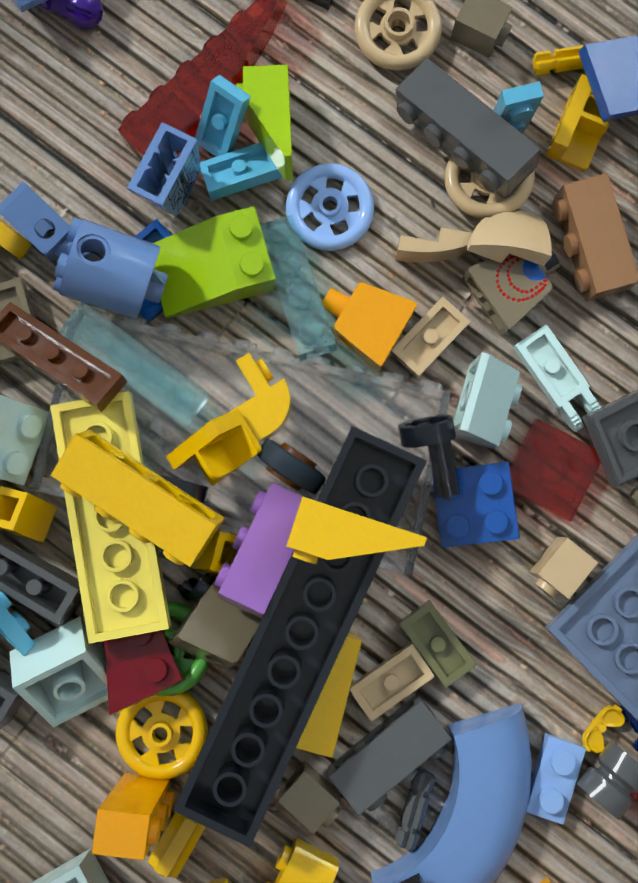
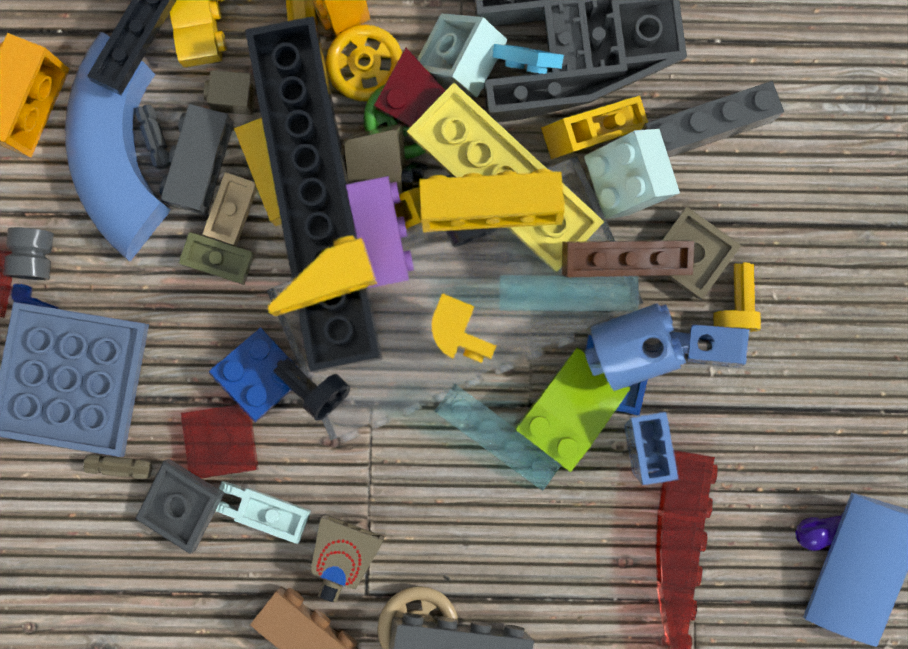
camera: 145 degrees right, 0 degrees up
(218, 447) = (462, 277): yellow panel -> none
(222, 116) = (645, 522): medium azure plate -> none
(238, 171) = (605, 495): medium azure plate -> none
(270, 113) = (618, 556): lime slope -> none
(291, 466) = (403, 301): black wheel -> none
(353, 186) = (492, 521): light blue plate -> none
(369, 321) = (427, 451): light orange torso -> none
(430, 337) = (375, 473): tan plate -> none
(448, 245) = (413, 550): tan slope -> none
(486, 401) = (300, 452): light aqua slope -> none
(512, 233) = (368, 591): tan brick -> none
(554, 778) = (71, 227): light blue plate -> none
(562, 568) = (164, 373): tan brick -> none
(608, 717) = (63, 274): yellow piece -> none

